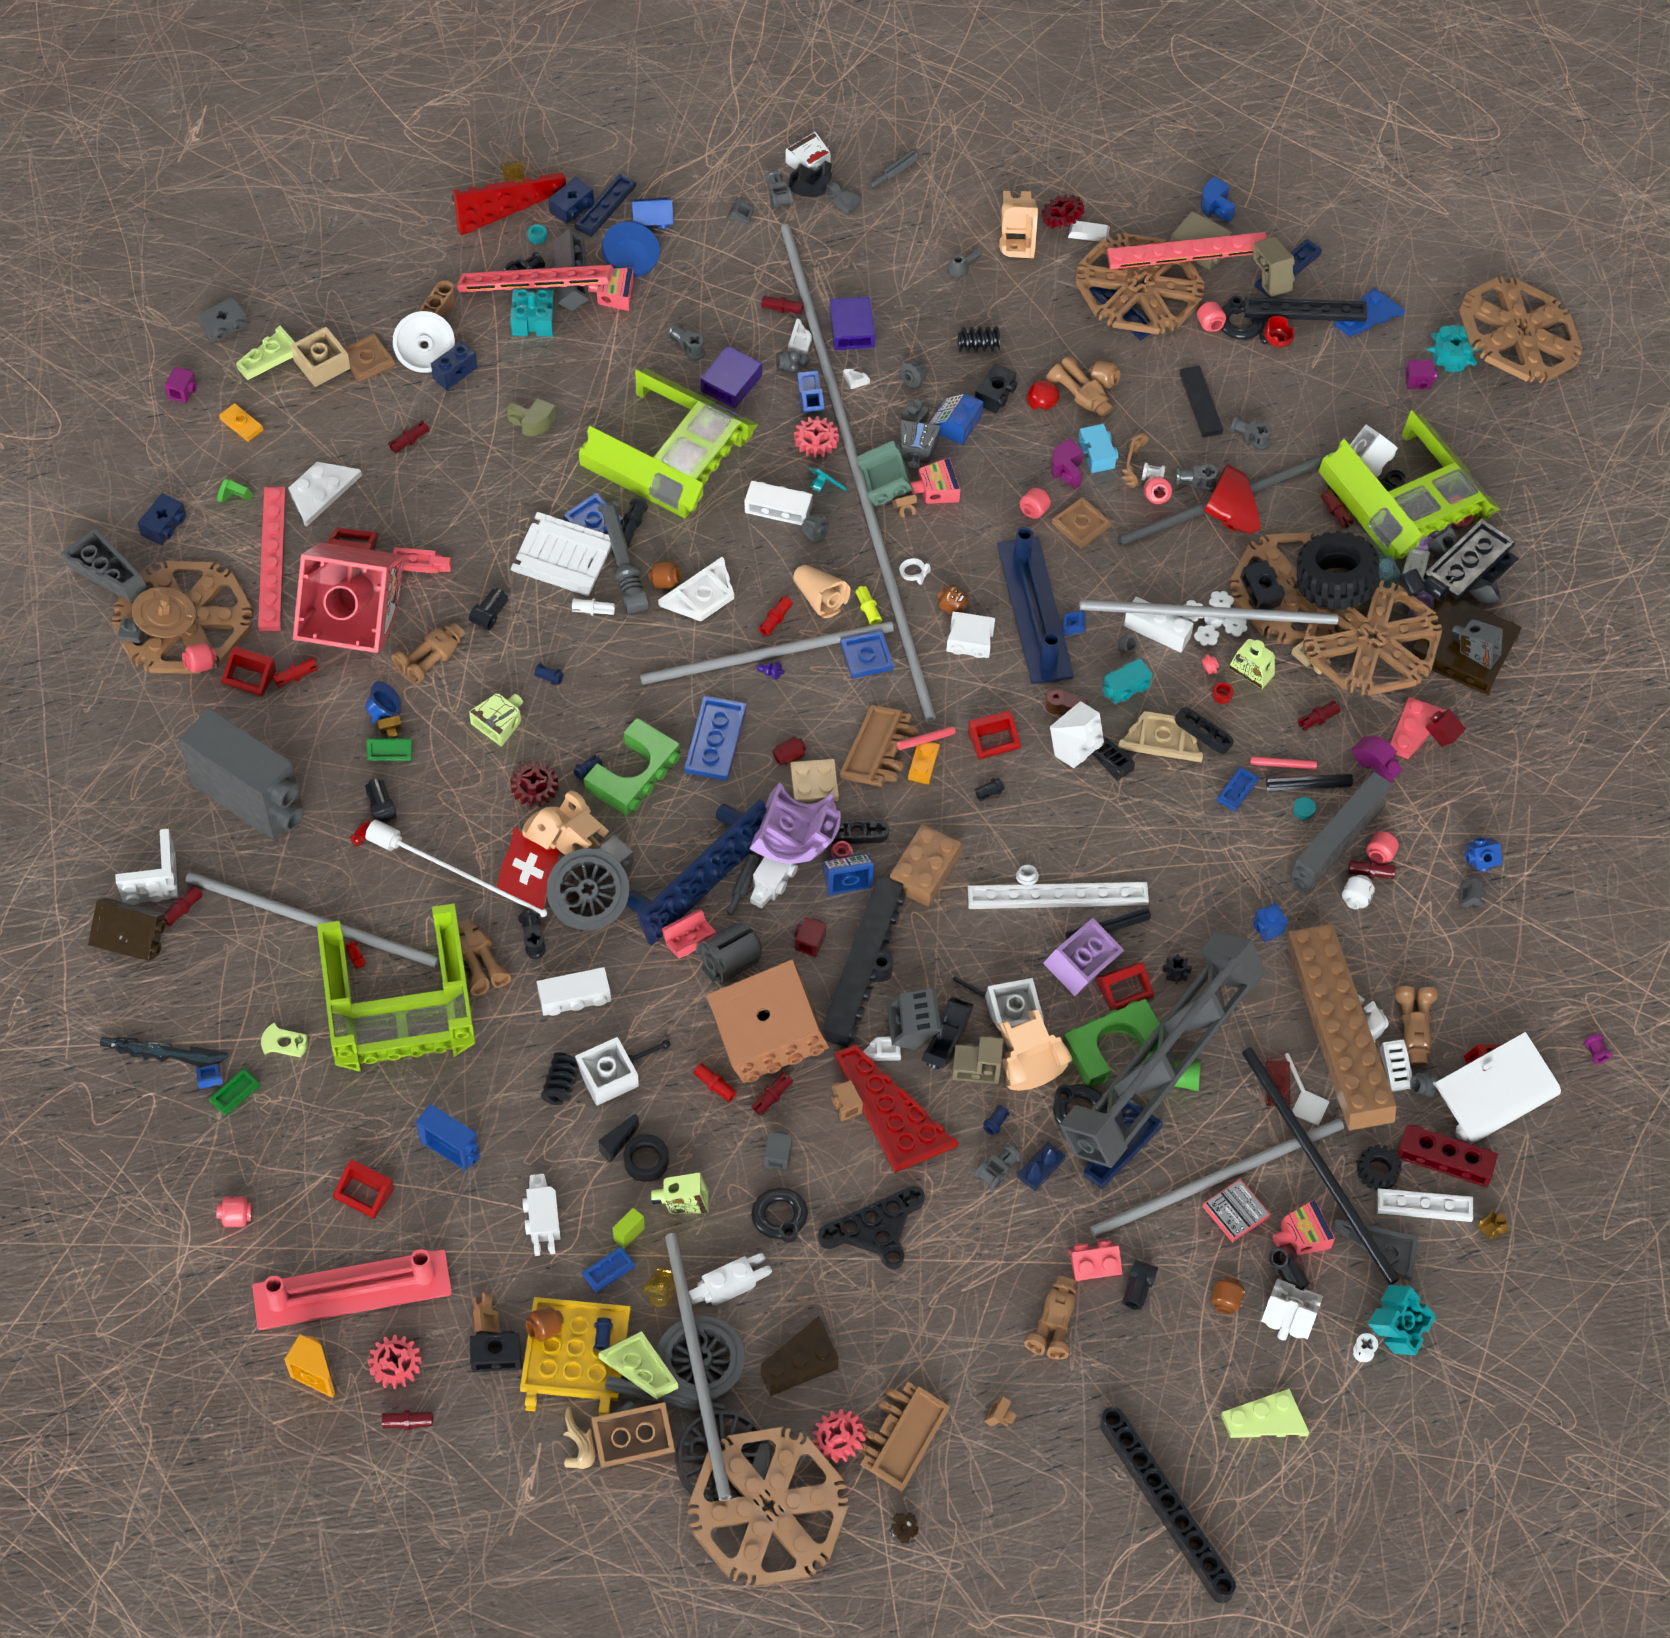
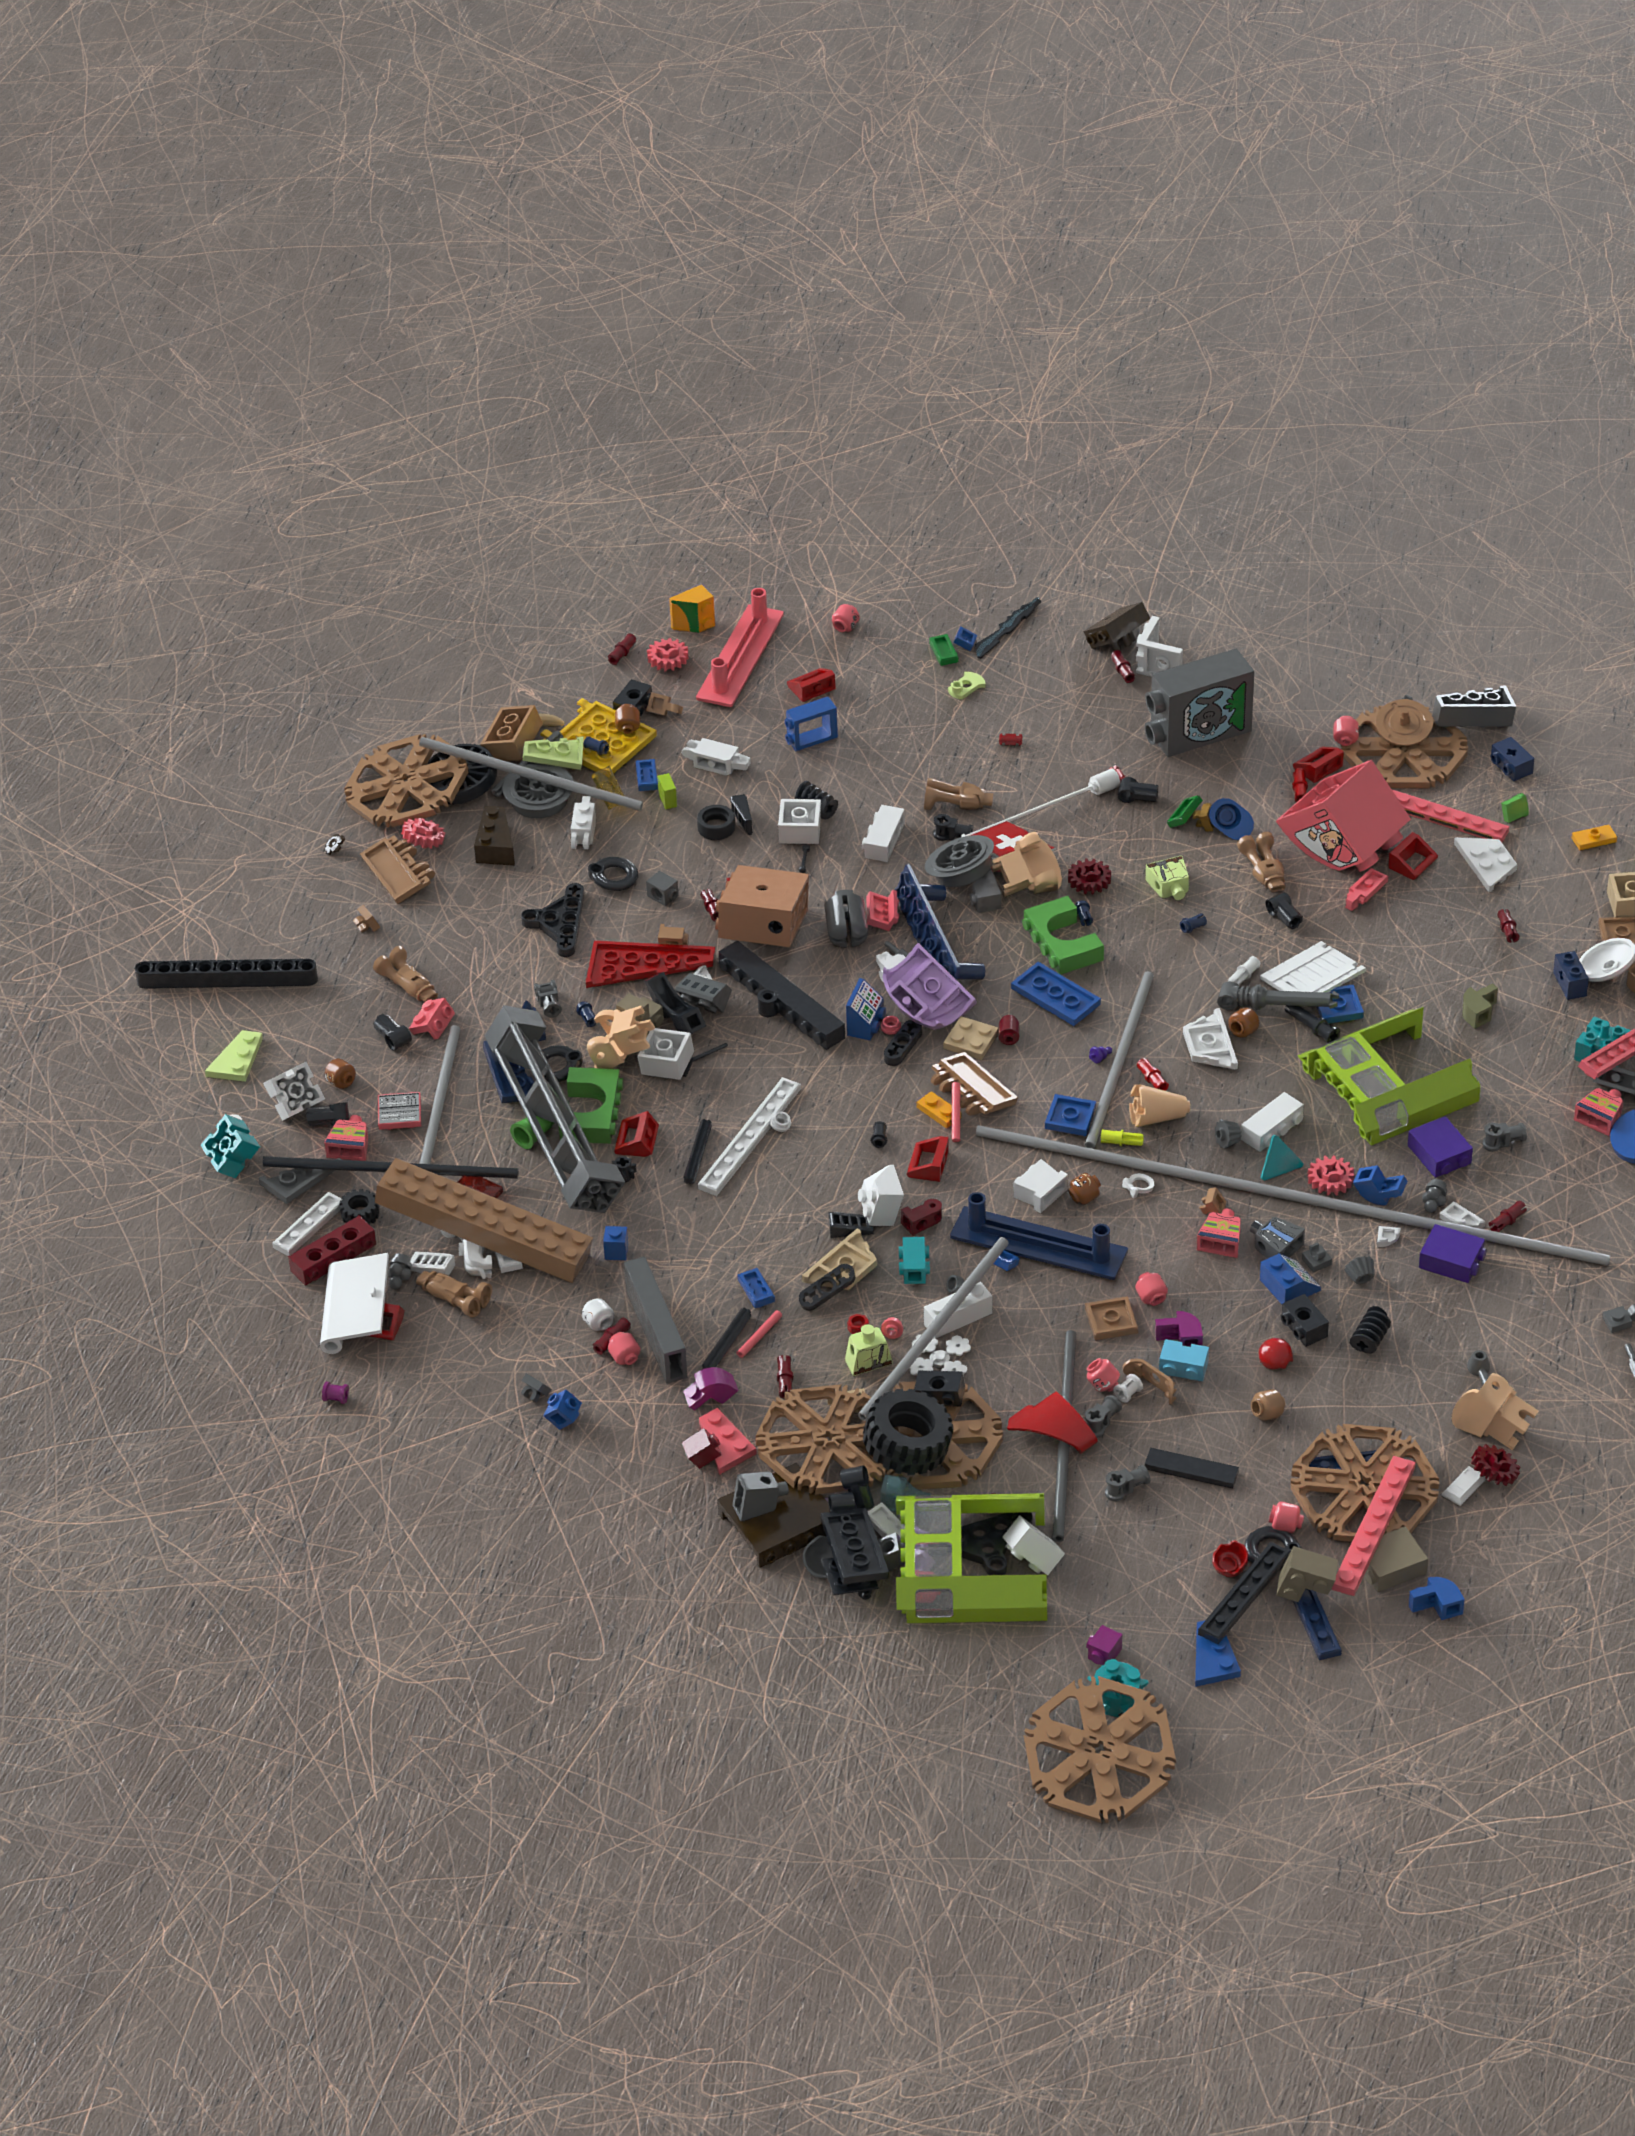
camera: 125 degrees right, 15 degrees down
(311, 919) = (1058, 728): light grey piece -> none
(398, 1024) = (936, 720): lime piece -> none
(683, 1194) = (666, 825): yellowish green torso -> none
(810, 936) = (826, 974): dark red brick -> none
(885, 473) = (1251, 1200): sand green panel -> none
(926, 864) = (836, 1062): medium nougat brick -> none
(1083, 956) = (677, 1114): lavender slope -> none
(1090, 396) = (1252, 1381): medium nougat piece -> none
(1304, 808) = (704, 1324): teal tile -> none
(1494, 1225) = (255, 1253): pearl gold arm -> none

